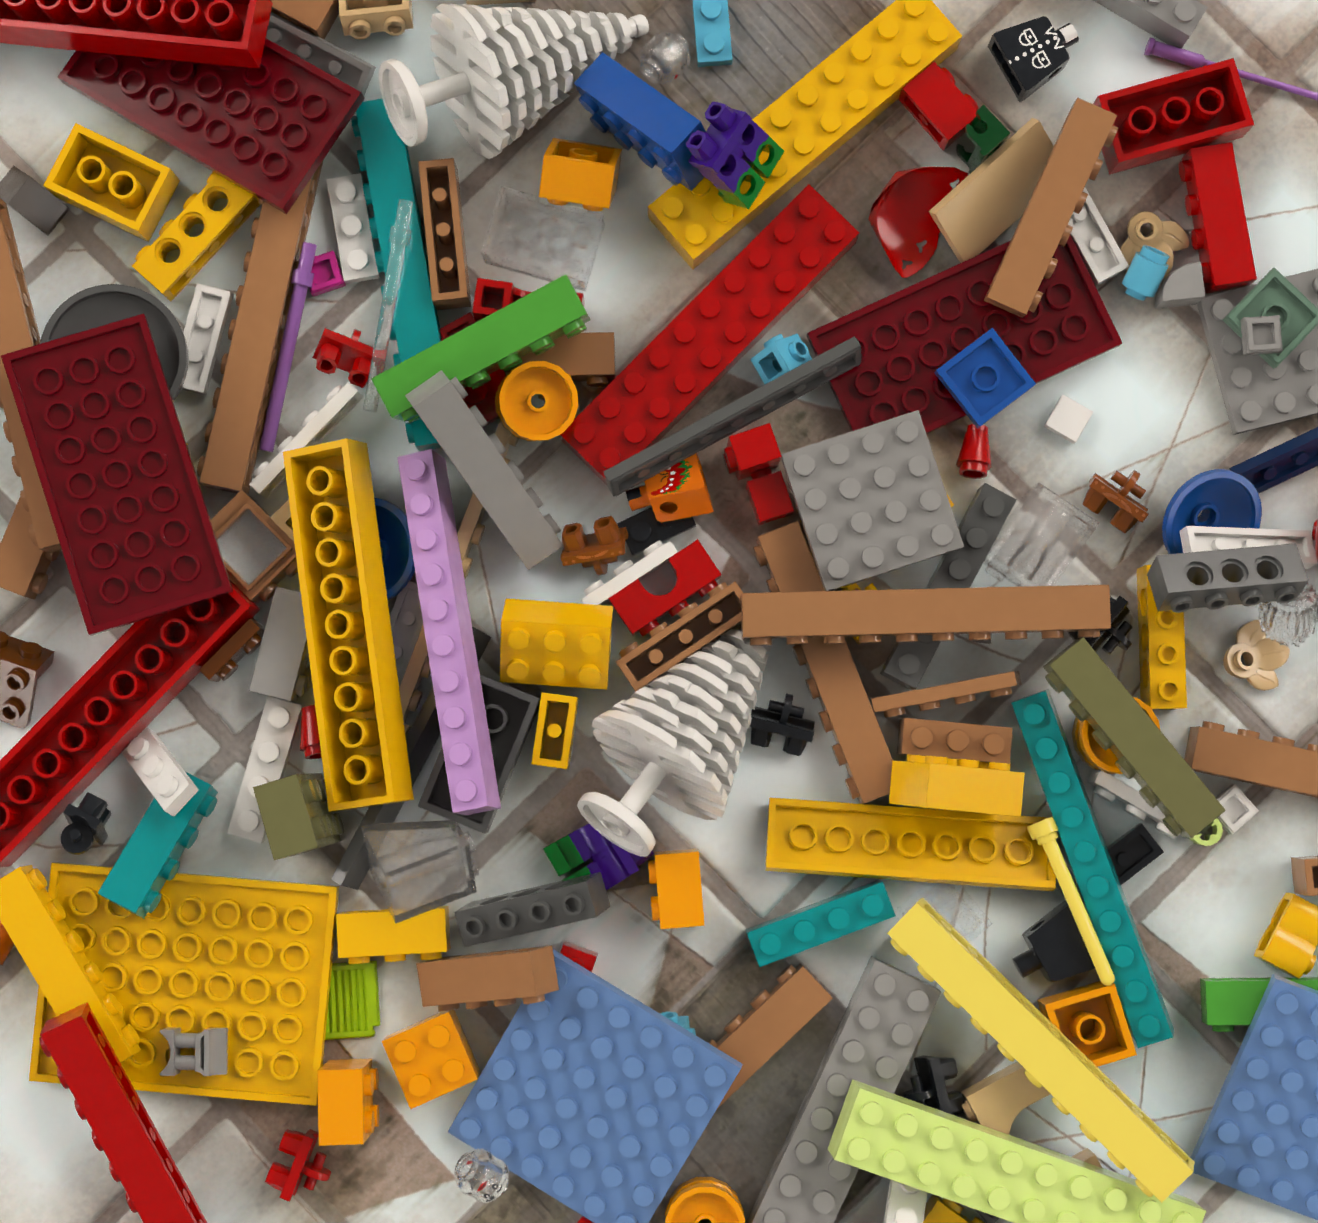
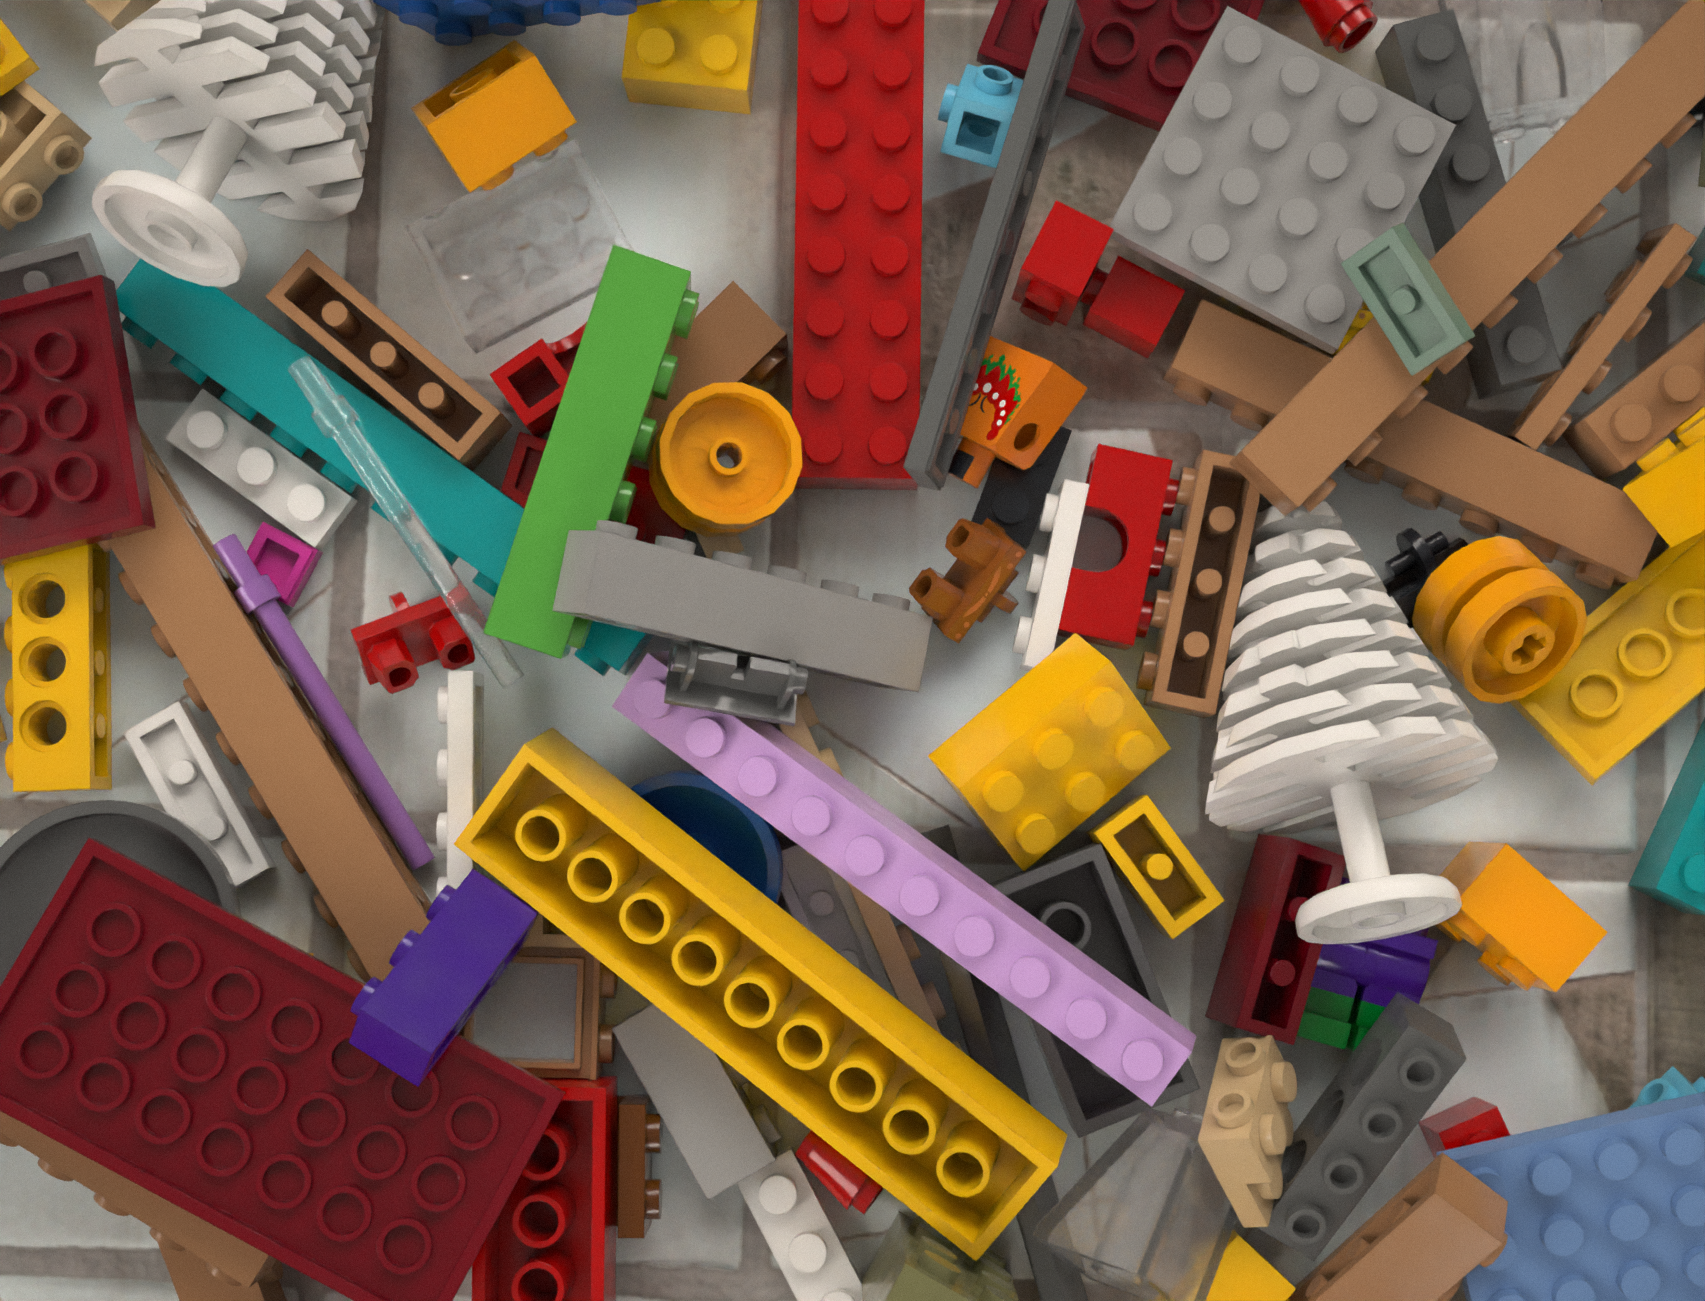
camera: 45 degrees left, 0 degrees up
(228, 498) = (440, 976): none -> dark purple brick
(451, 493) = (733, 683): none -> dark grey hinge
(489, 867) = (1249, 1124): none -> tan plate
(558, 814) = (1264, 962): none -> dark red brick
(789, 764) = (1499, 619): none -> light orange wheel
(864, 594) = (1407, 299): none -> sand green plate

